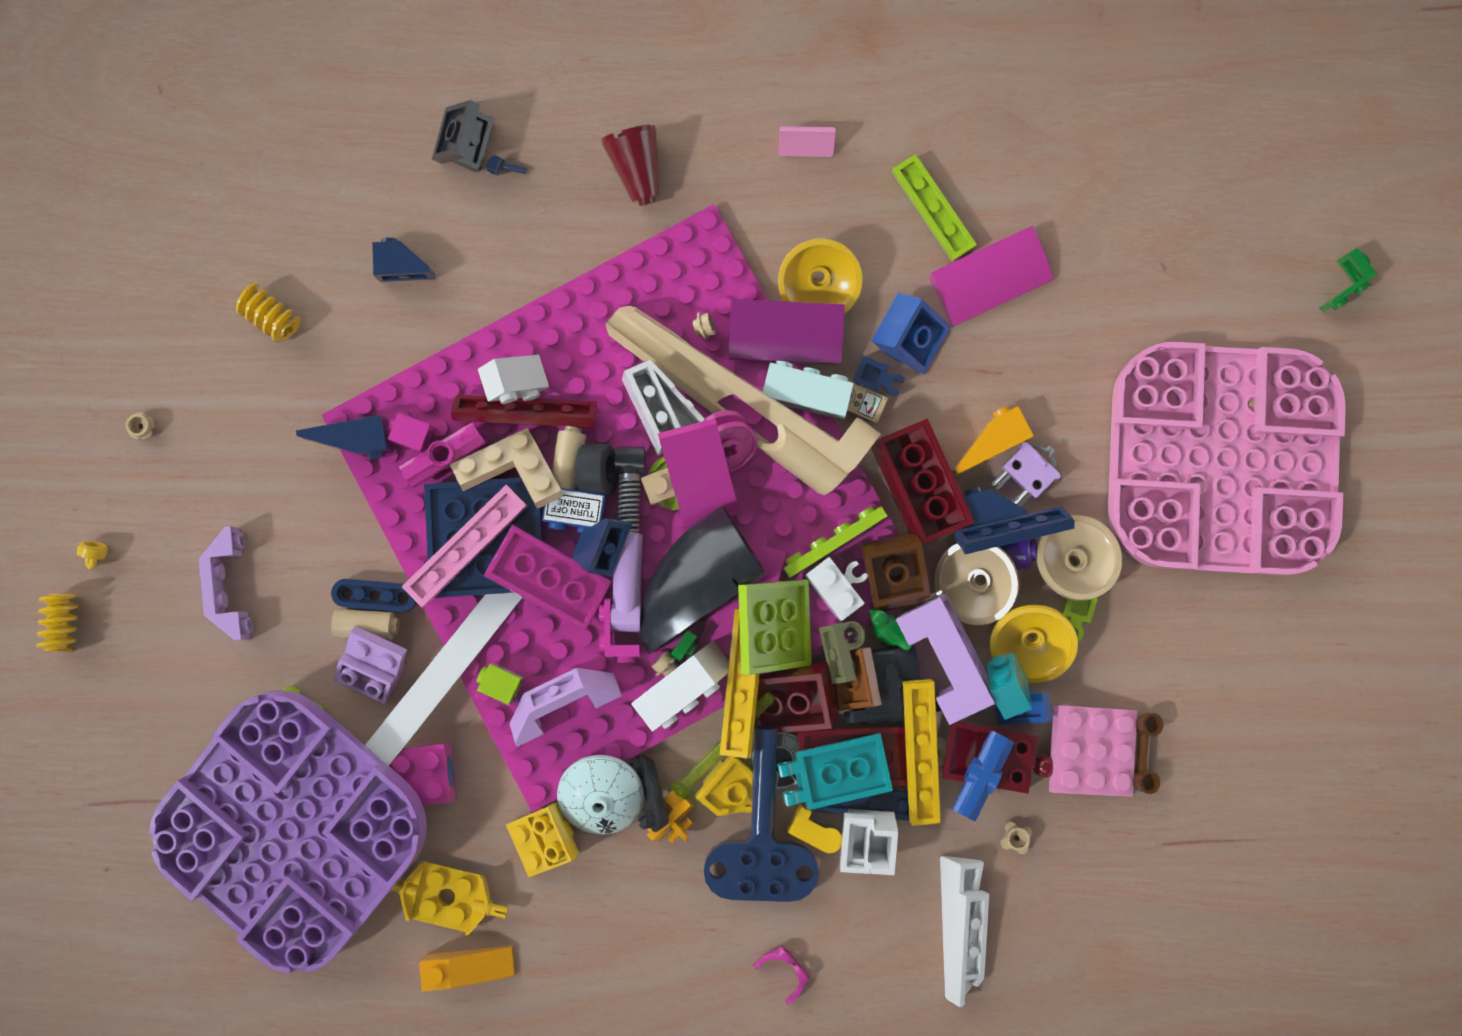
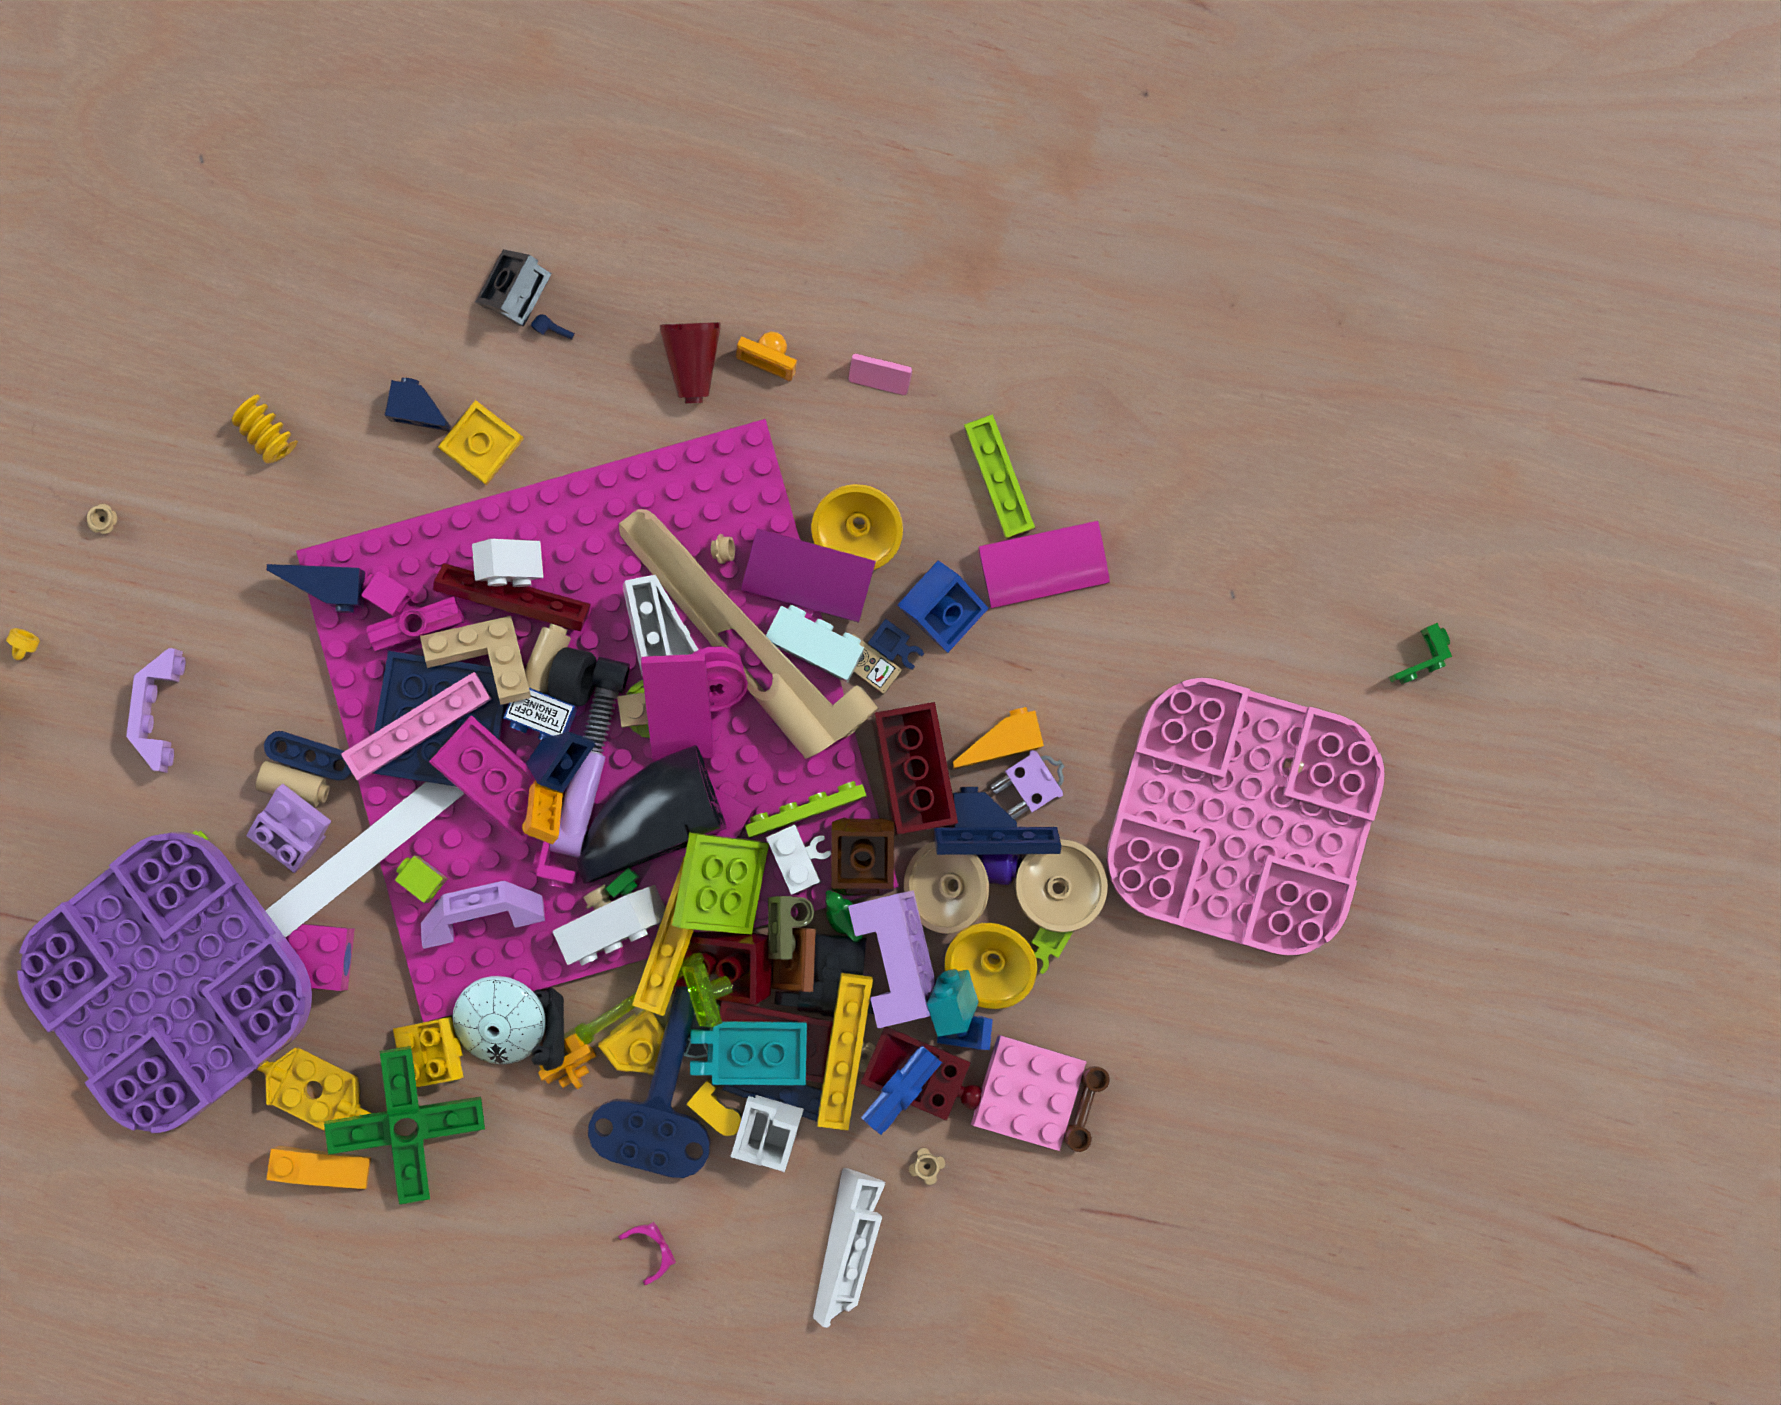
camera: 10 degrees right, 0 degrees up
(465, 282) = (481, 442): none -> yellow tile
(530, 892) = (402, 1102): none -> green piece
(599, 598) = (543, 813): none -> light orange tile
(703, 147) = (768, 354): none -> light orange tile
(784, 728) = (705, 992): none -> clear neon green tile

